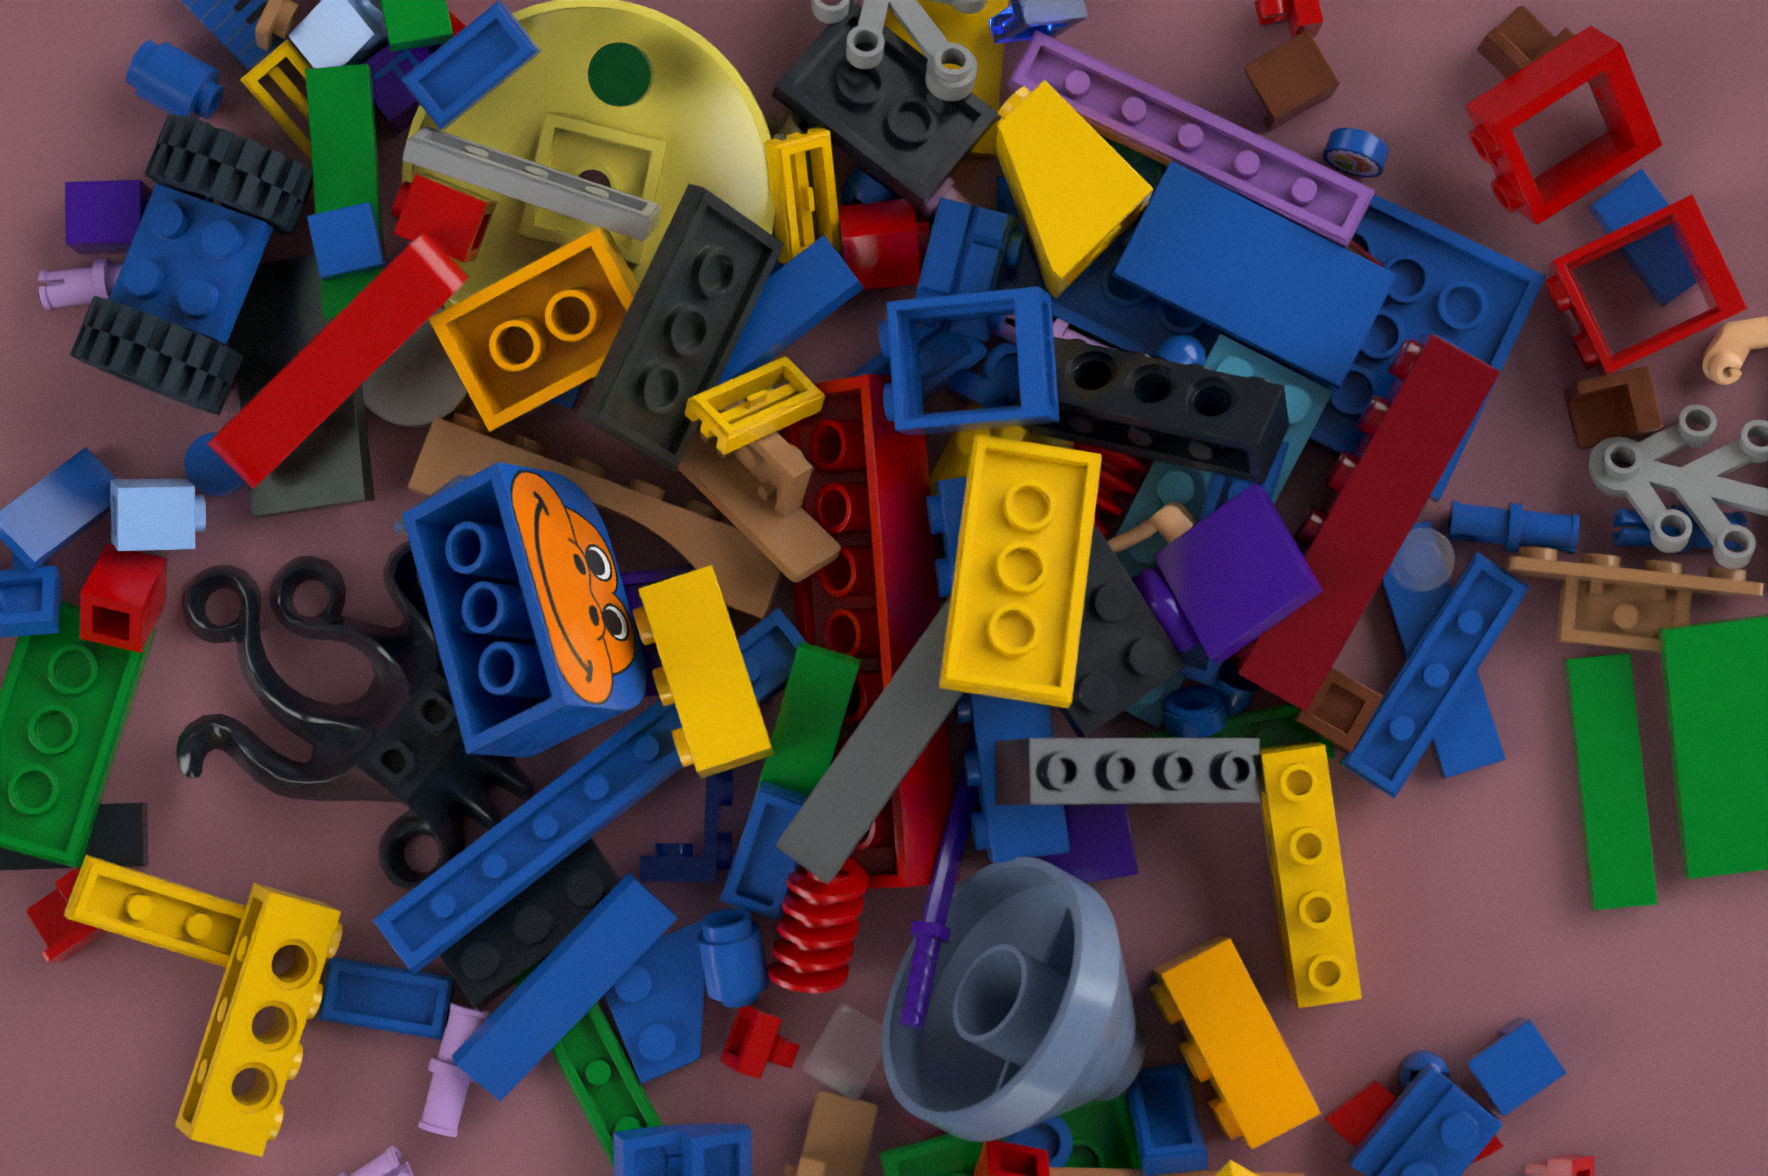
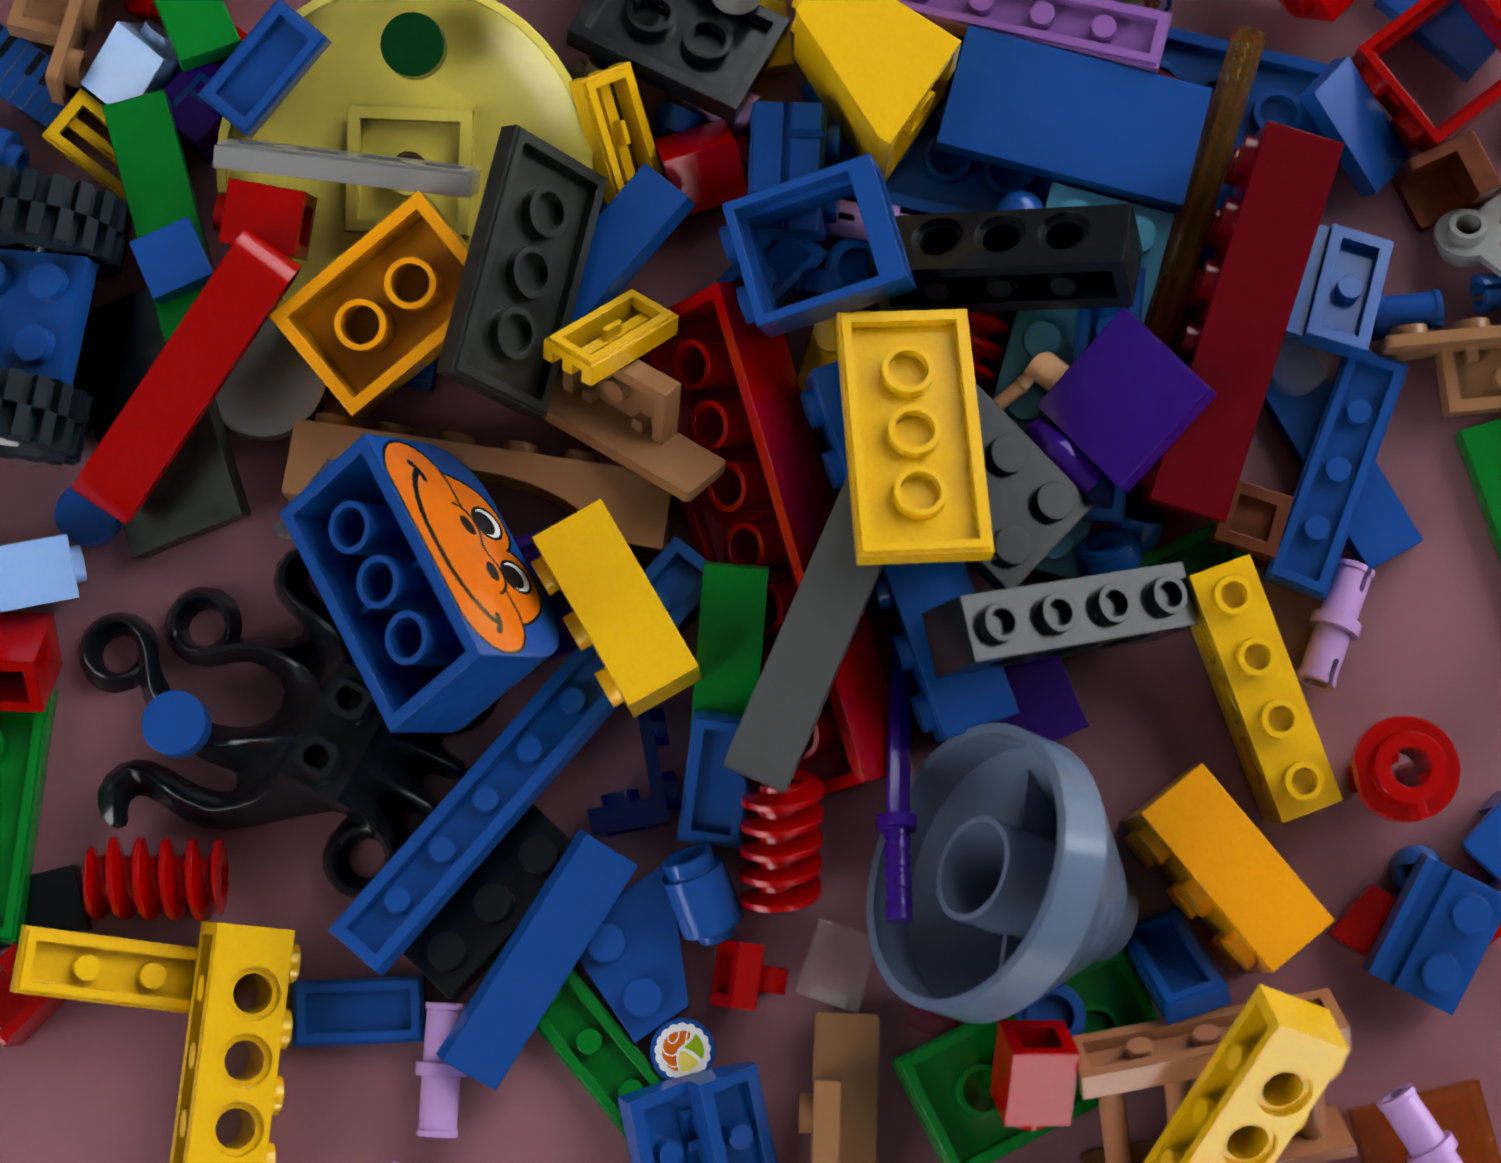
camera: 15 degrees left, 5 degrees down
(218, 836) = (156, 881): none -> red piece
(265, 691) = (176, 724): none -> blue tile
(685, 1097) = (682, 1048): none -> tile
(1367, 370) = (1205, 182): none -> clear orange axle
(1400, 824) = (1335, 625): none -> lavender pin
(1448, 992) = (1421, 785): none -> red piece
(1476, 499) = (1341, 291): none -> blue plate
(1534, 335) = (1350, 114): none -> blue tile

